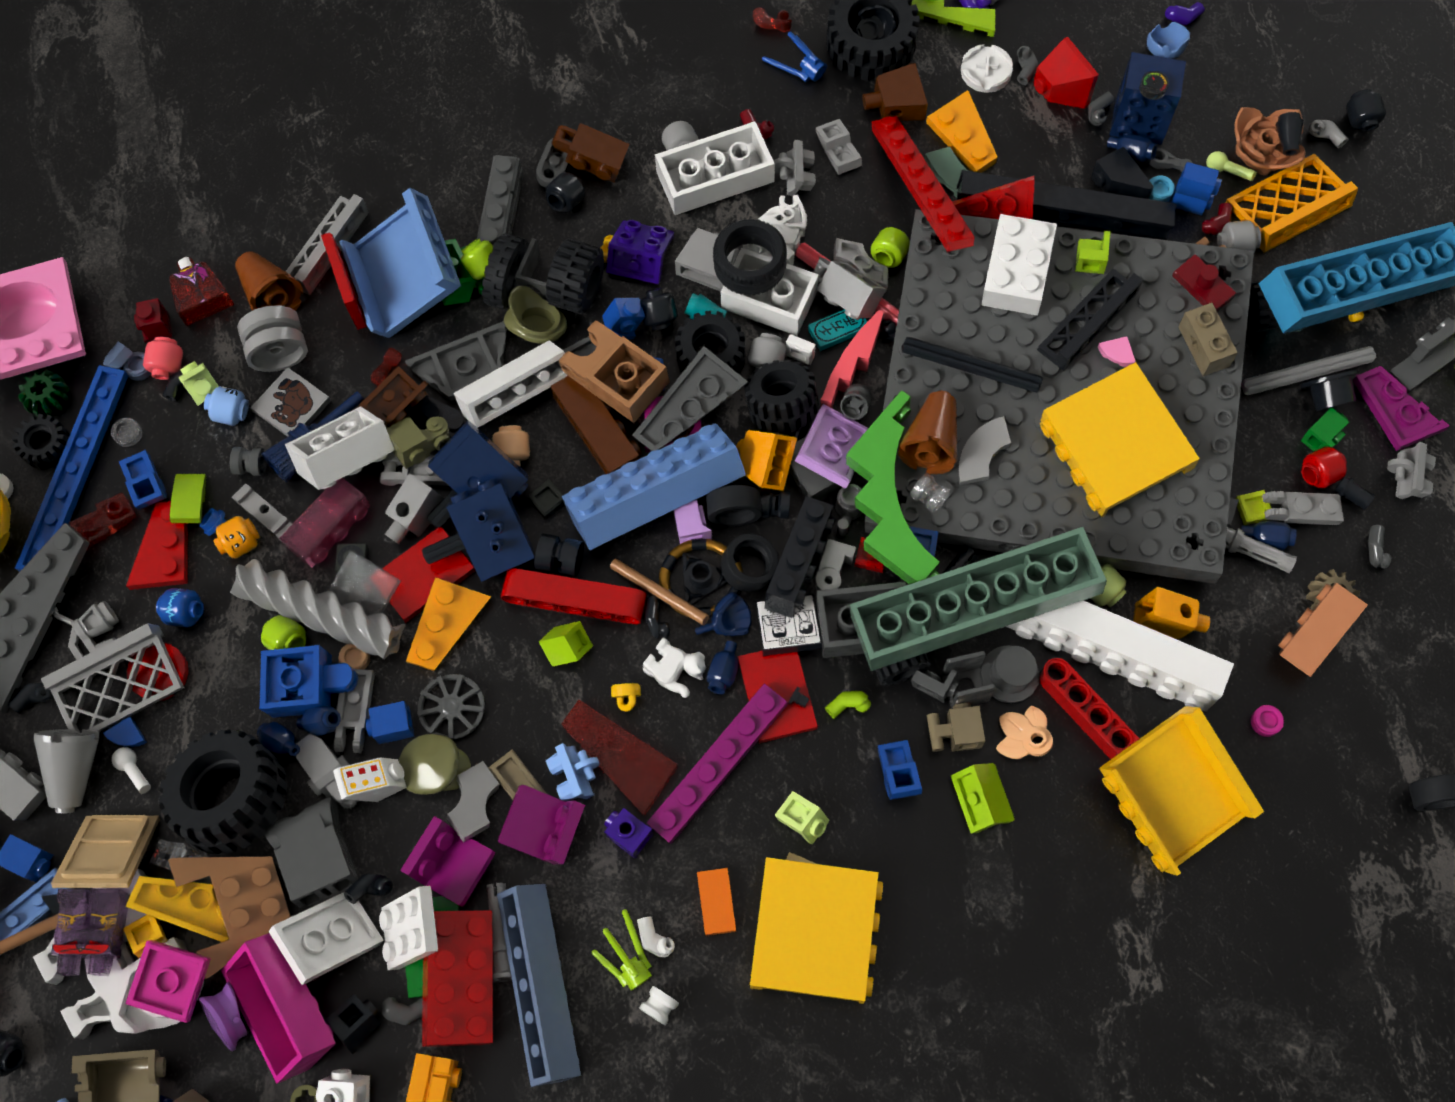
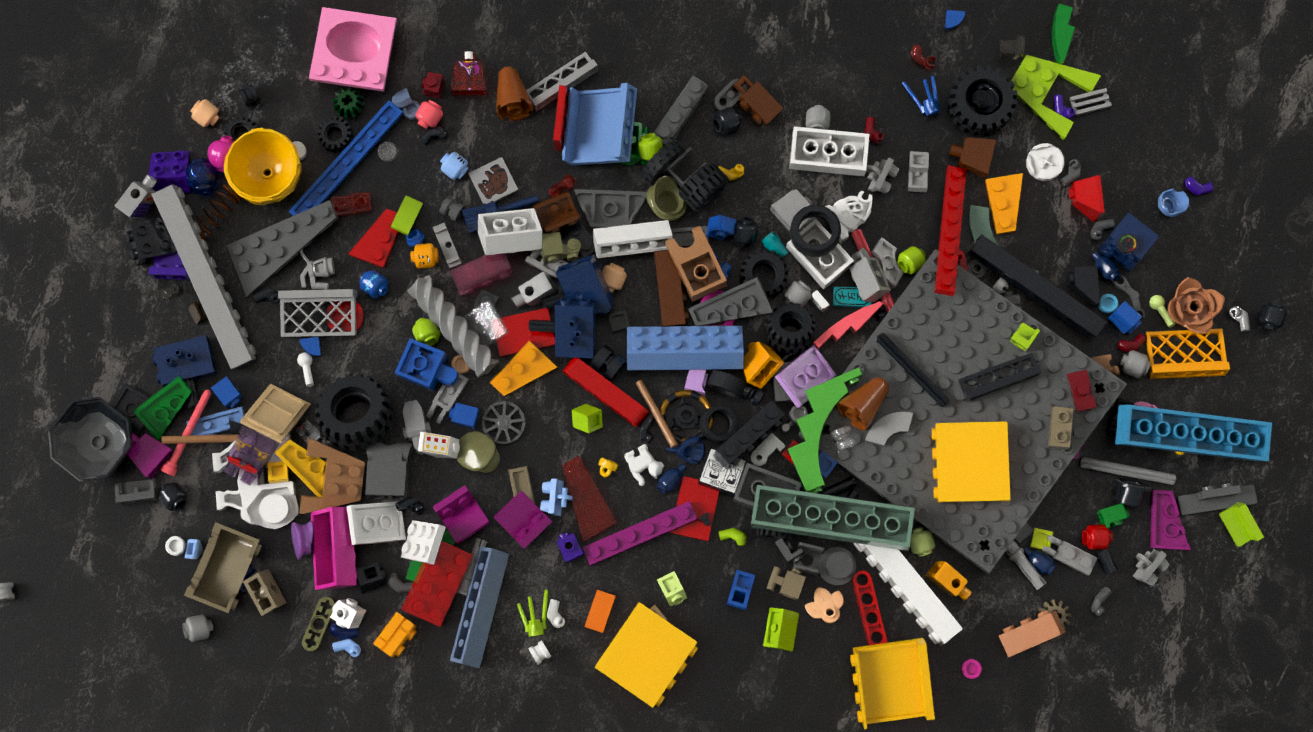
camera: 25 degrees right, 10 degrees up
(65, 765) = (272, 349): light grey cone -> none
(142, 480) = (384, 191): blue brick -> none
(168, 981) = (280, 505): dark pink tile -> none
(197, 381) = (444, 141): yellowish green bracket -> none
(272, 338) = (500, 136): light grey wheel -> none
(277, 739) = (396, 393): dark blue plant -> none
(319, 720) = (425, 395): dark blue plant -> none
(470, 813) = (485, 493): light grey tile -> none
(638, 251) = (754, 183): dark purple bracket -> none
(853, 407) = (835, 353): dark grey wheel -> none
(1009, 199) = (991, 271): red wing -> none
(1019, 264) = (974, 321): white brick -> none
(1117, 351) = (1004, 407): bright pink tile -> none
(1289, 132) = (1207, 310): black cone -> none

